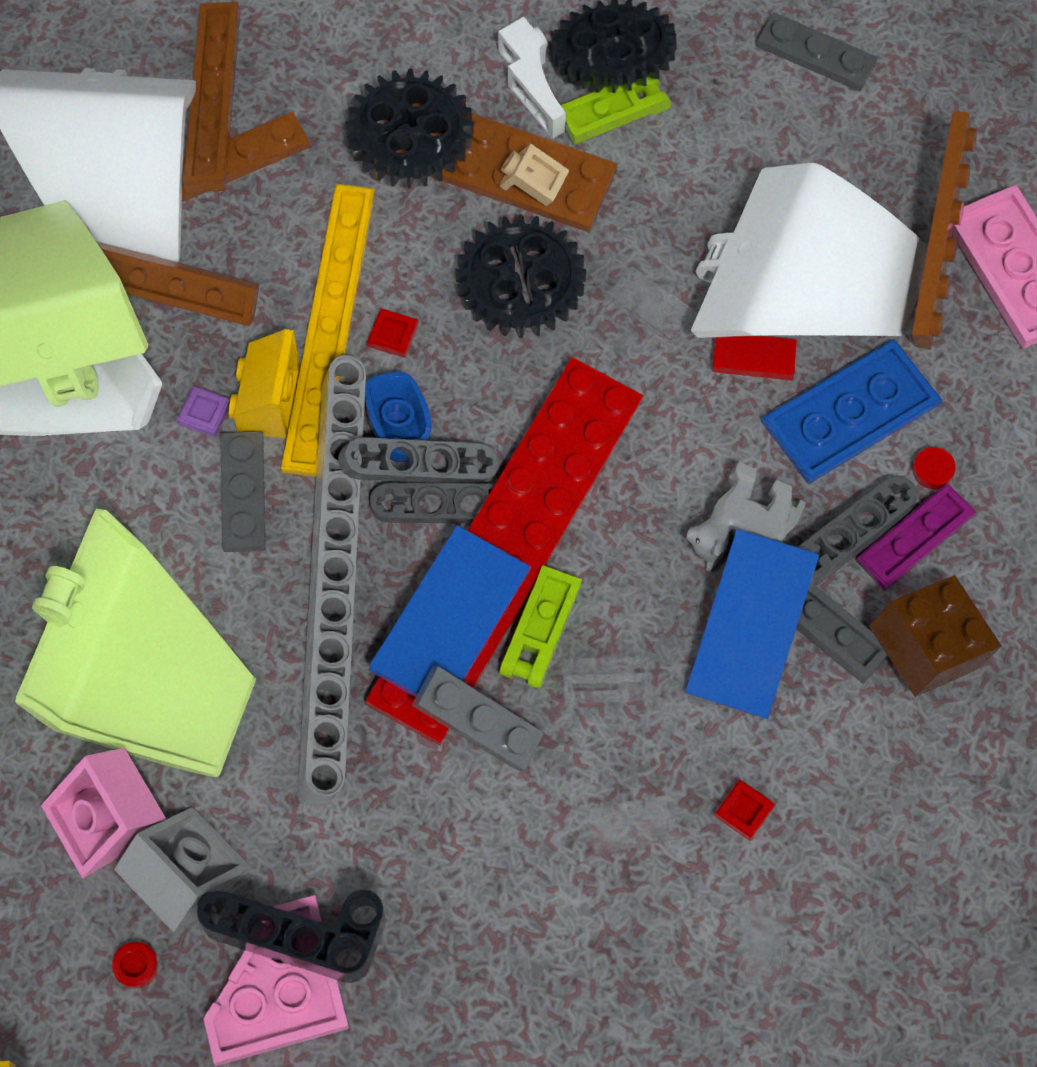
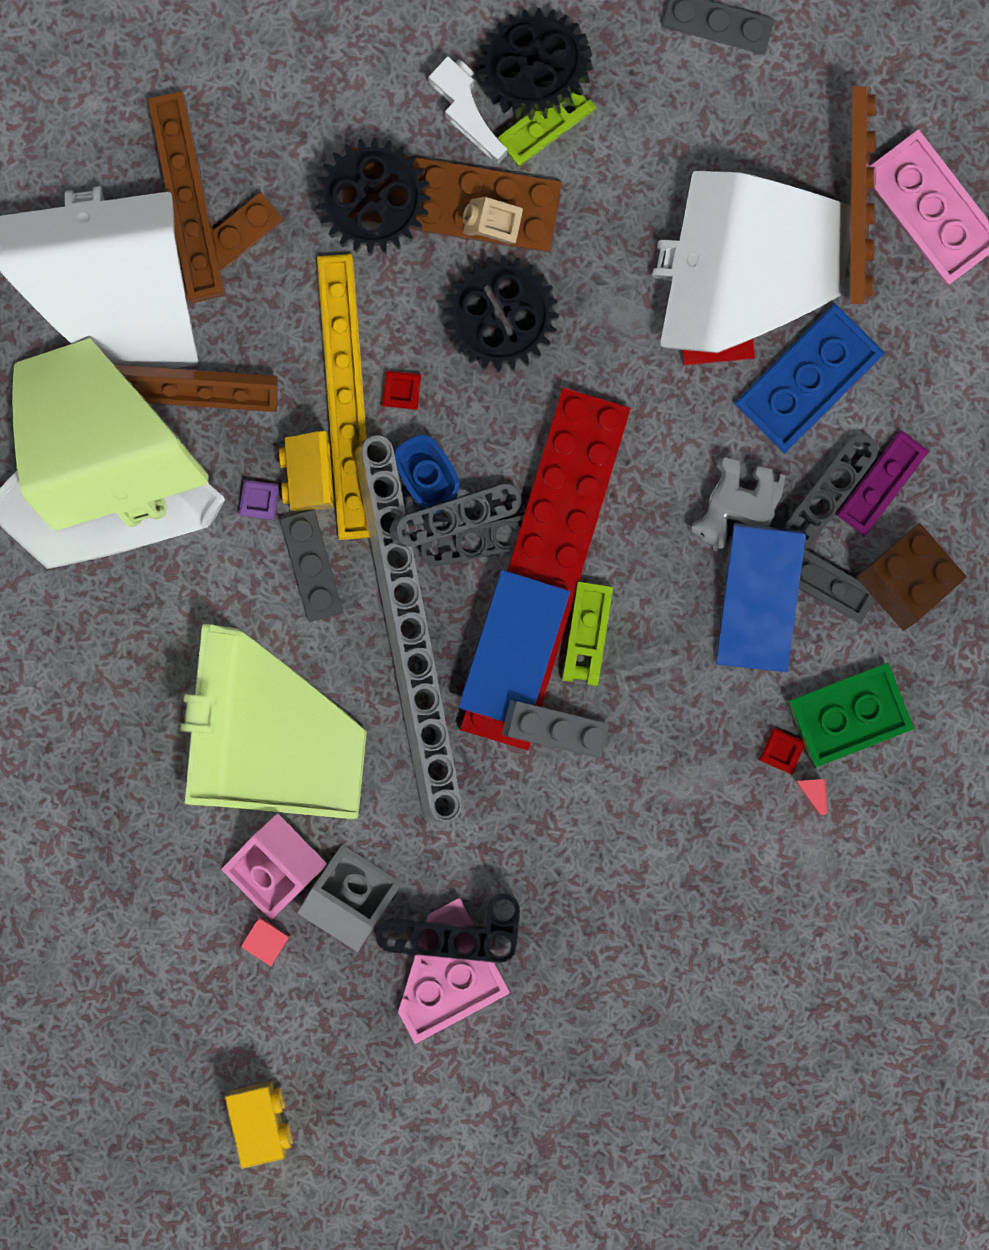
camera: 10 degrees left, 20 degrees up
(67, 899) = (265, 941): none -> coral slope
(134, 965) = (332, 979): red tile -> none
(774, 862) = (815, 793): none -> coral slope
(835, 782) = (850, 715): none -> green plate
(934, 468) = (887, 417): red tile -> none

